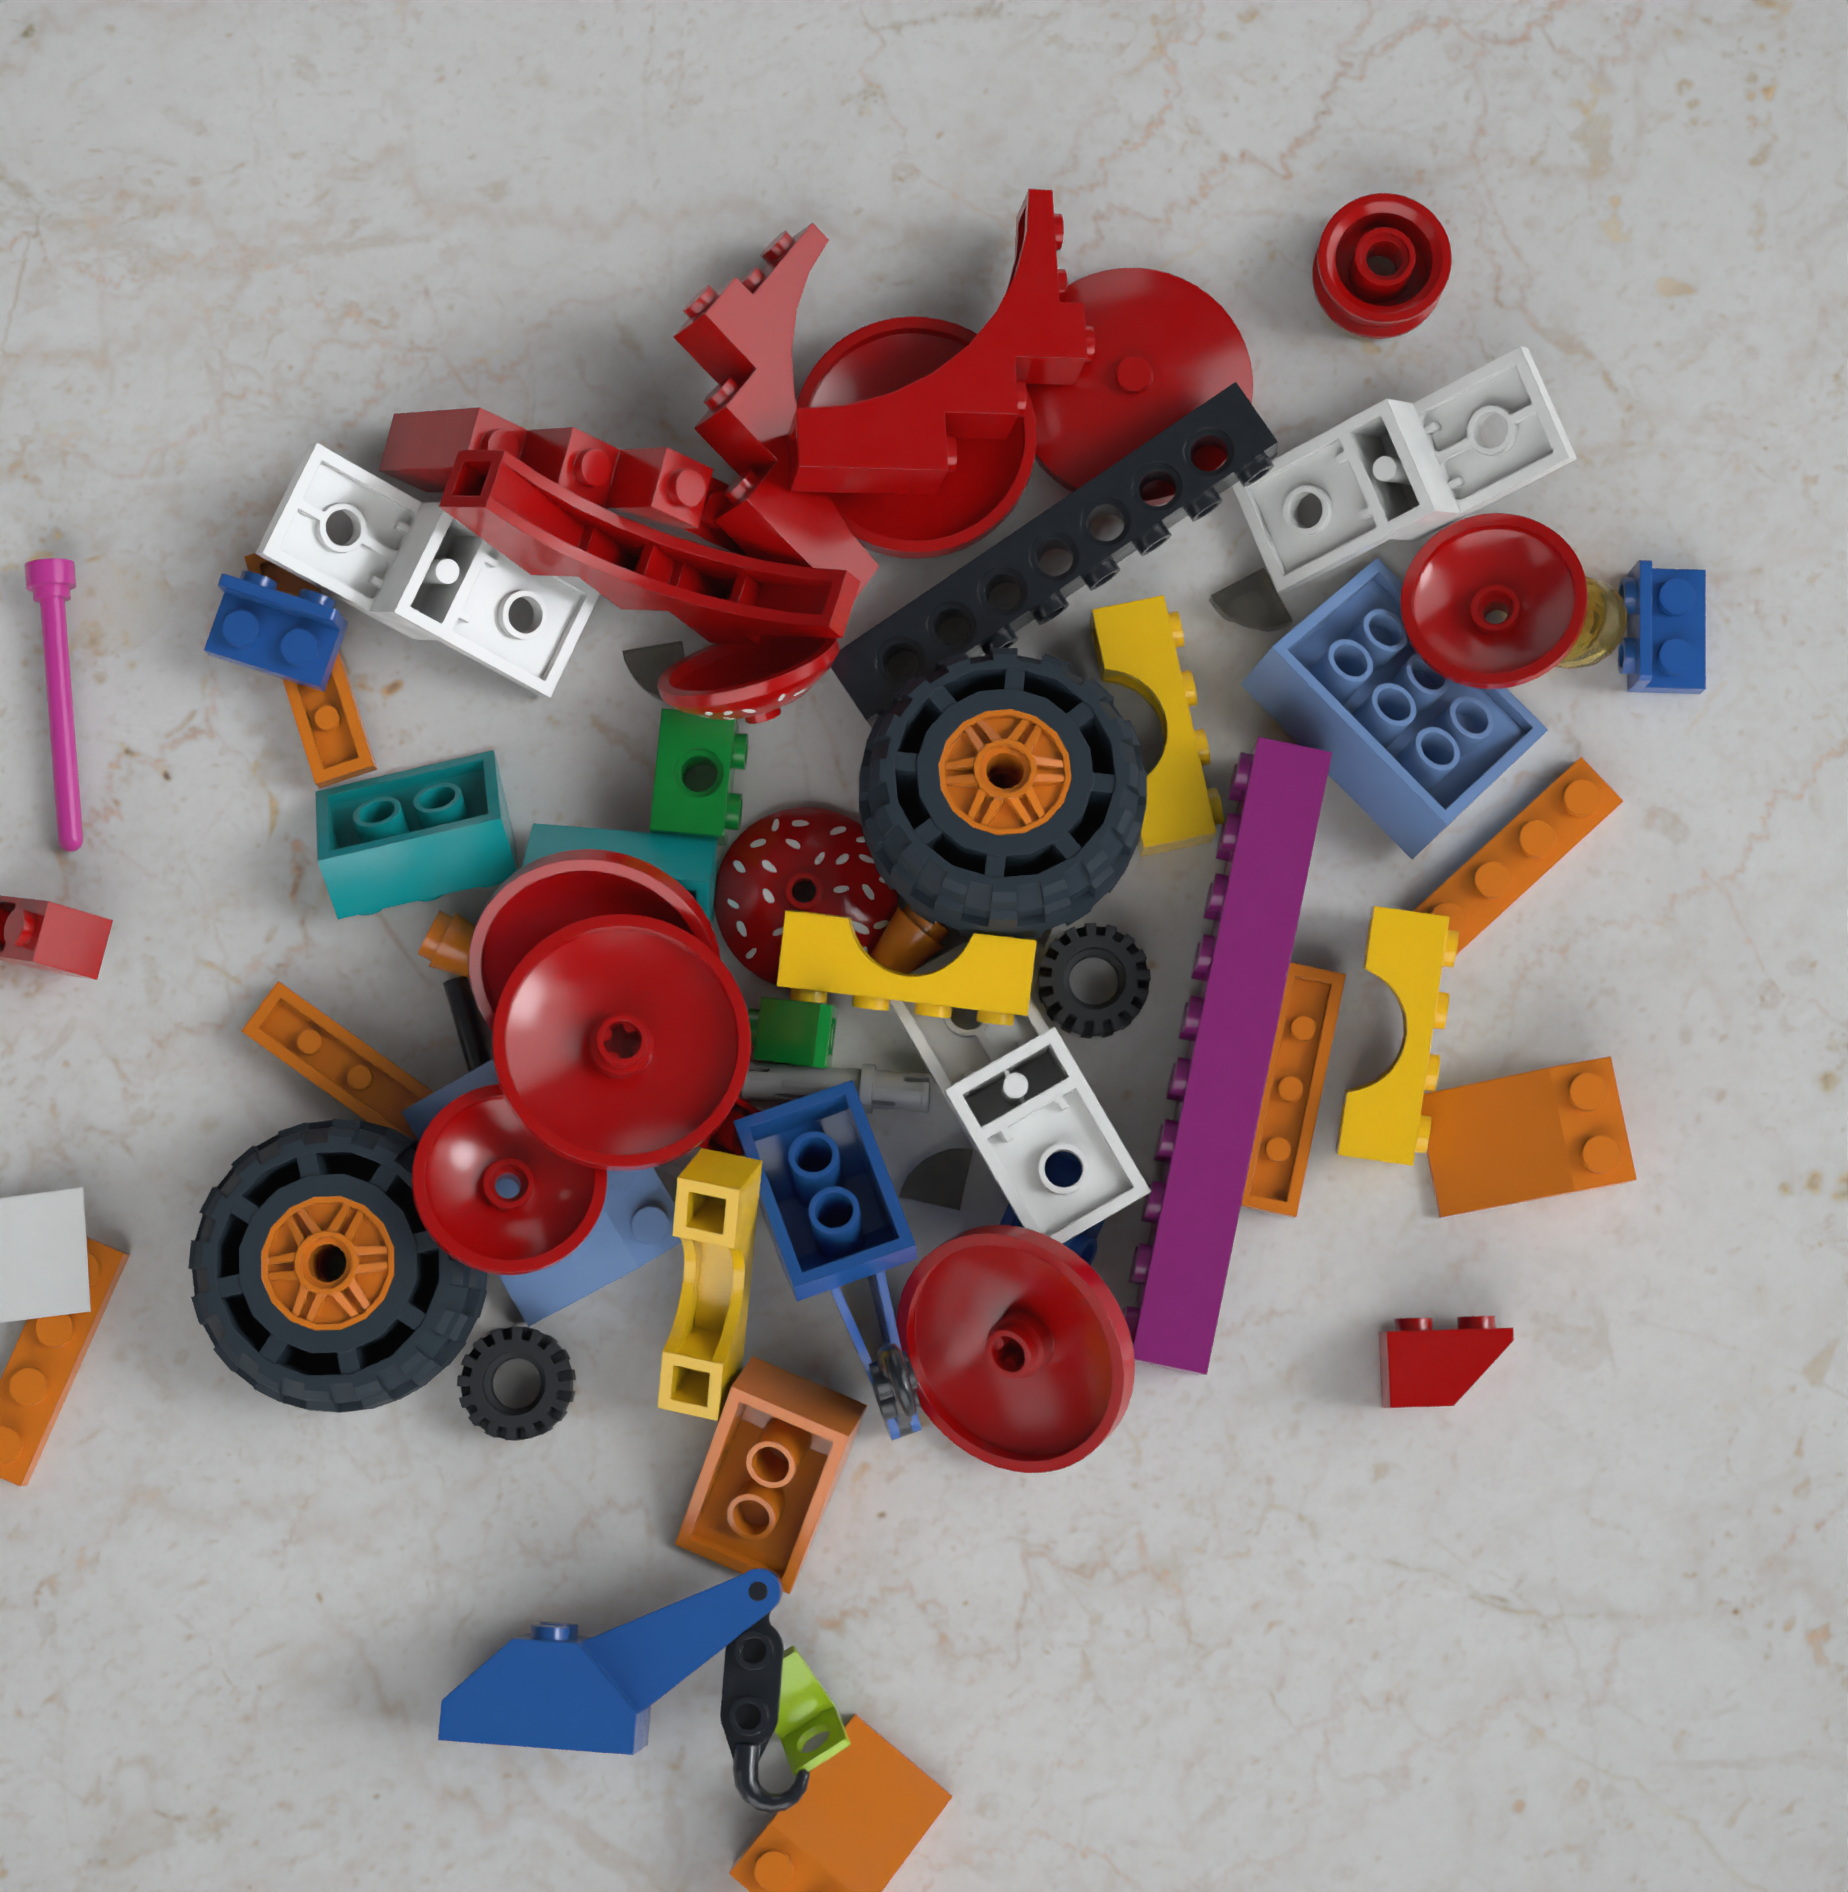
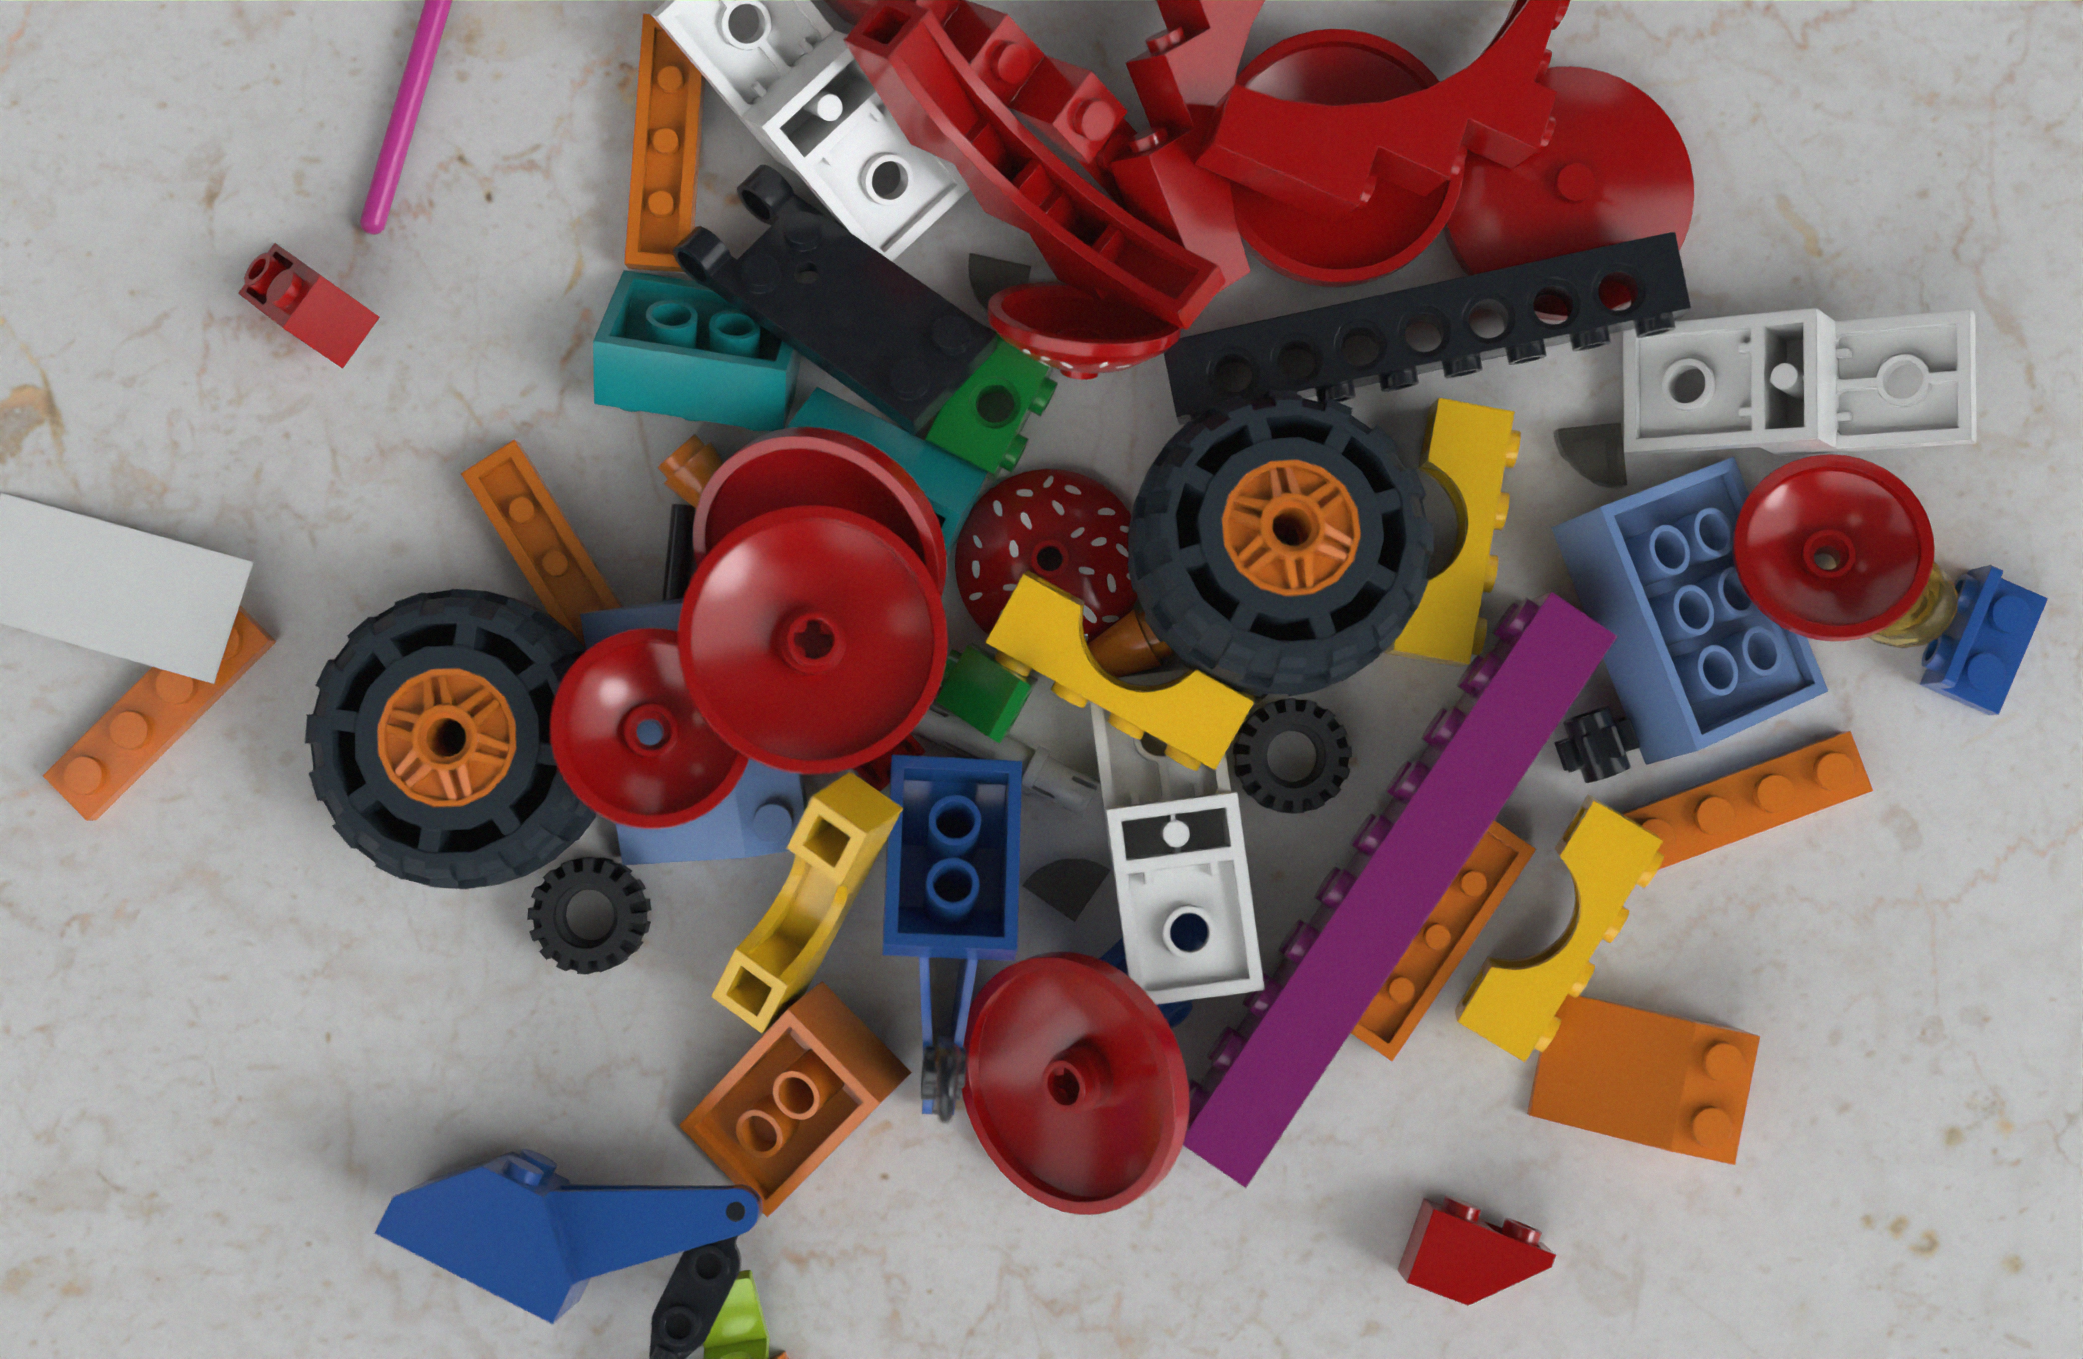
camera: 20 degrees right, 5 degrees up
(276, 630) = (645, 100): blue bracket -> none
(547, 746) = (861, 316): none -> black hinge
(1361, 859) = (1597, 744): none -> black gear
(1388, 228) = (1894, 149): red wheel -> none

